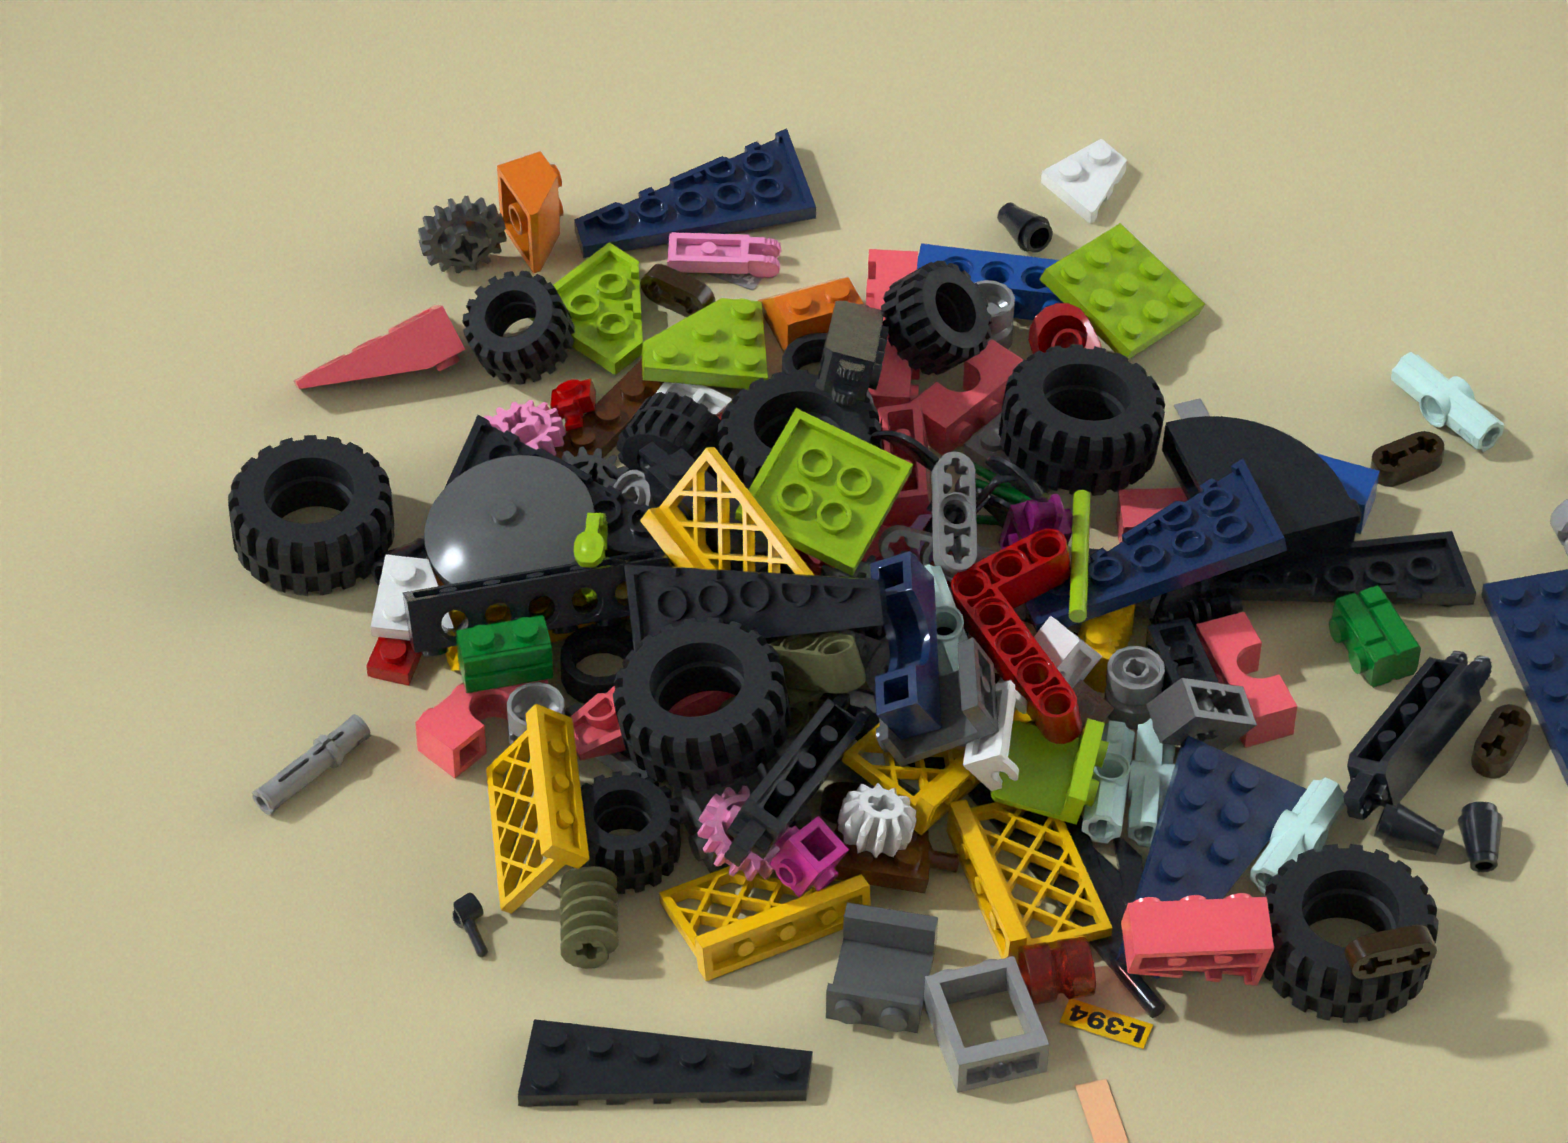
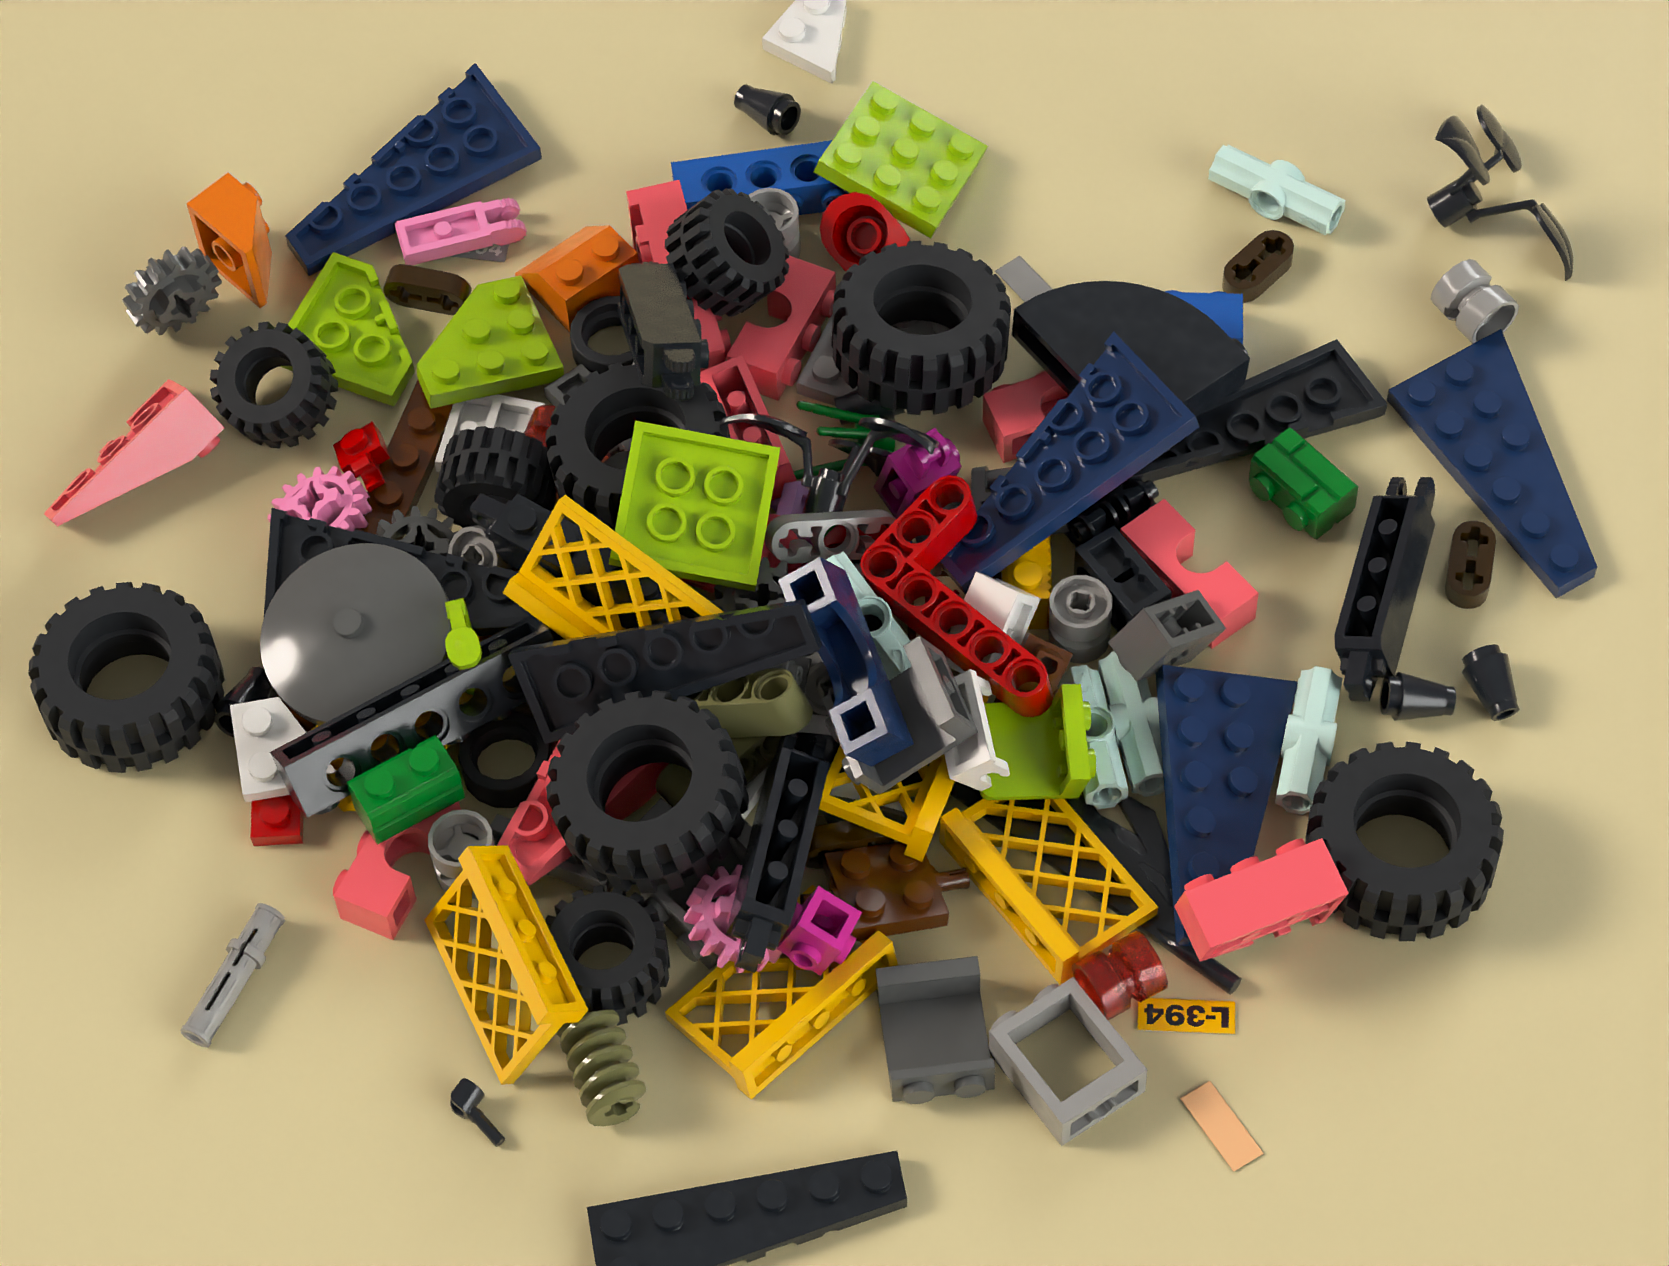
camera: 15 degrees left, 10 degrees up
(876, 820) = (876, 866): white gear -> none
(965, 499) = (814, 460): light grey beam -> none
(1079, 556) = (981, 493): lime bar -> none
(1390, 951) = (1471, 862): dark brown beam -> none

